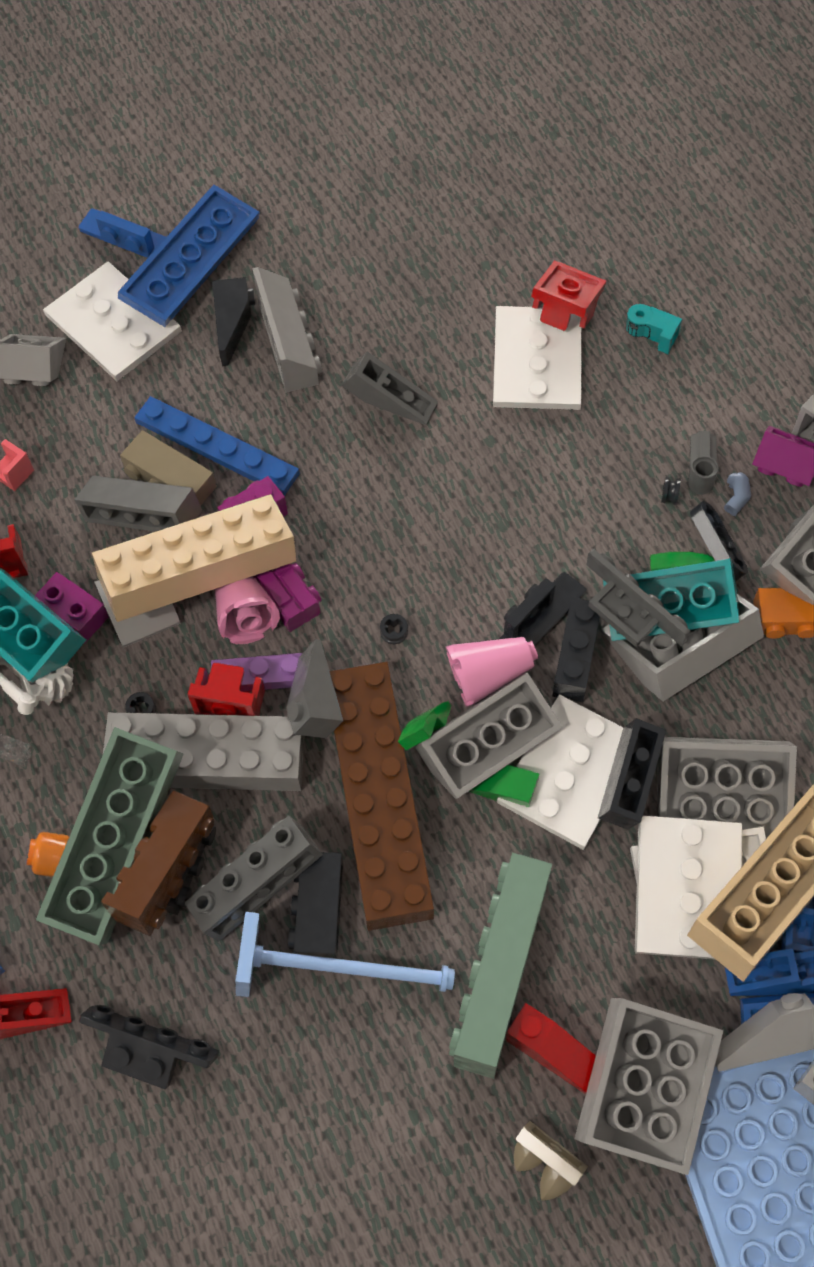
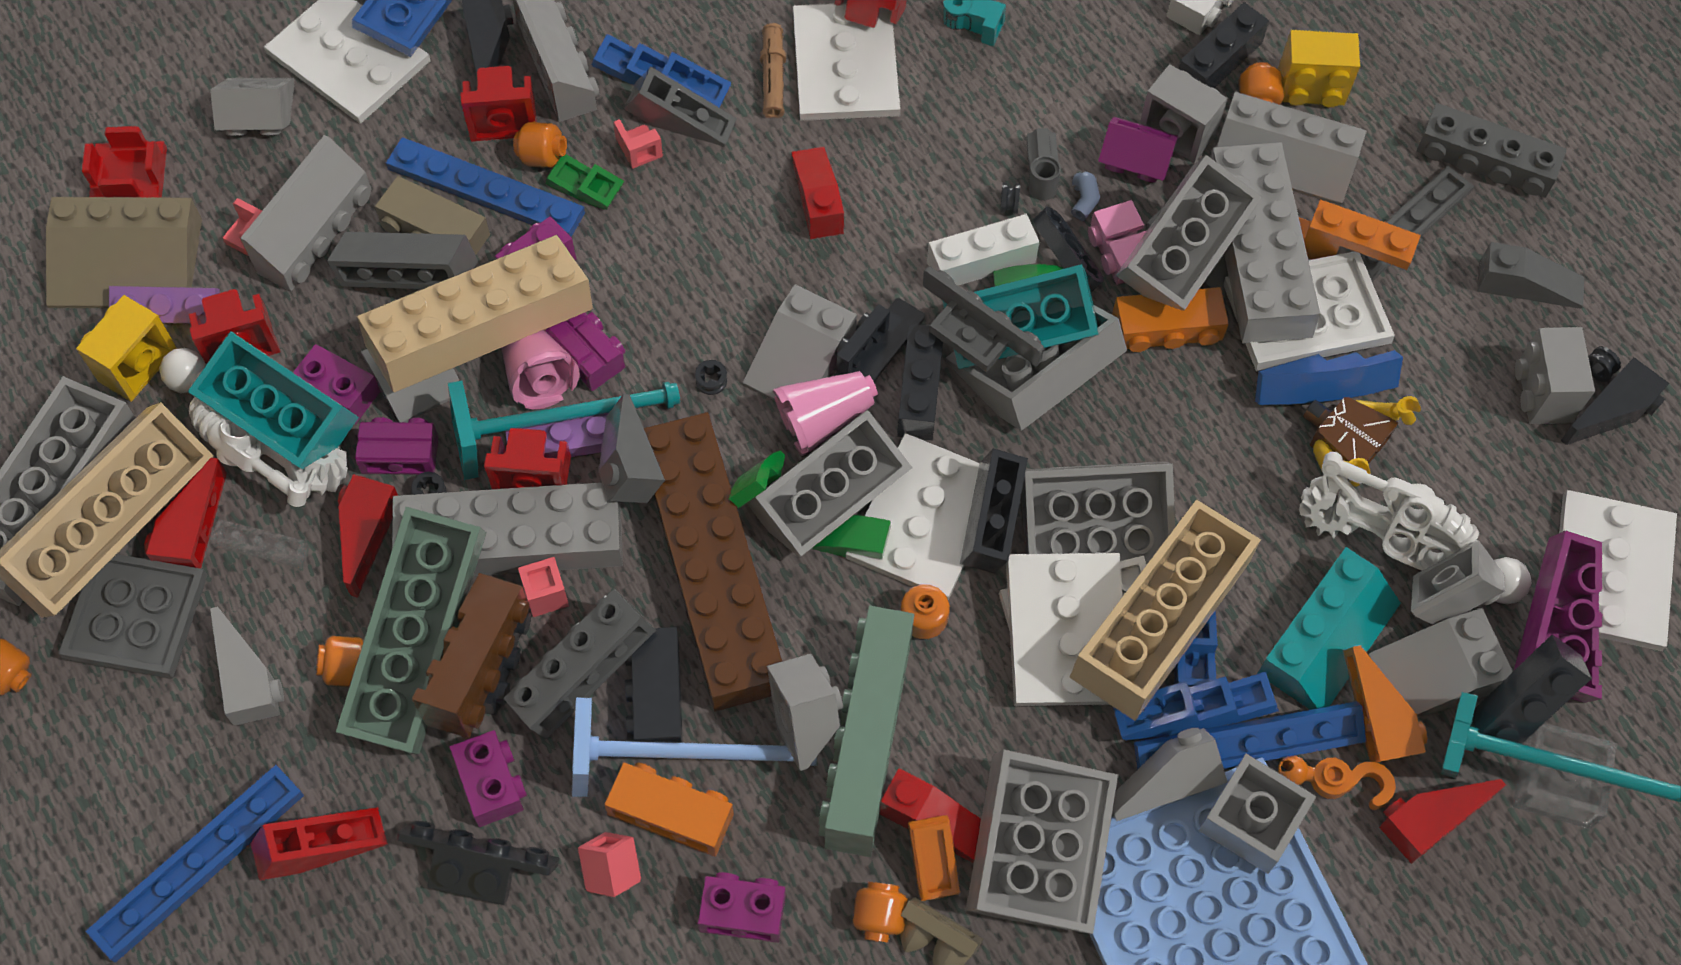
camera: 10 degrees left, 0 degrees up
(61, 458) = (306, 215): none -> light grey slope
(80, 735) = (364, 521): none -> red slope
(117, 667) = (396, 446): none -> magenta brick
(164, 973) = (487, 777): none -> magenta brick
(181, 659) = (470, 429): none -> teal tile
(229, 804) = (543, 586): none -> coral panel
(233, 377) = (496, 106): none -> red panel
(262, 1062) = (609, 864): none -> coral panel
(266, 412) = (539, 144): none -> orange head
(303, 449) = (588, 185): none -> green slope
(320, 1016) = (670, 807): none -> orange brick
(351, 346) = (631, 63): none -> blue slope
(351, 417) = (638, 144): none -> coral panel
(374, 1115) = (742, 907): none -> magenta brick
(446, 938) = (804, 707): none -> light grey slope
(474, 351) = (773, 59): none -> medium nougat pin
(474, 605) = (800, 342): none -> light grey slope
(497, 1132) = (879, 911): none -> orange head
(503, 472) = (818, 193): none -> red slope
(550, 1088) = (934, 858): none -> orange tile
(563, 869) = (930, 610): none -> orange head
(643, 536) = (985, 249): none -> white brick
(762, 532) = (1116, 235): none -> bright pink piece

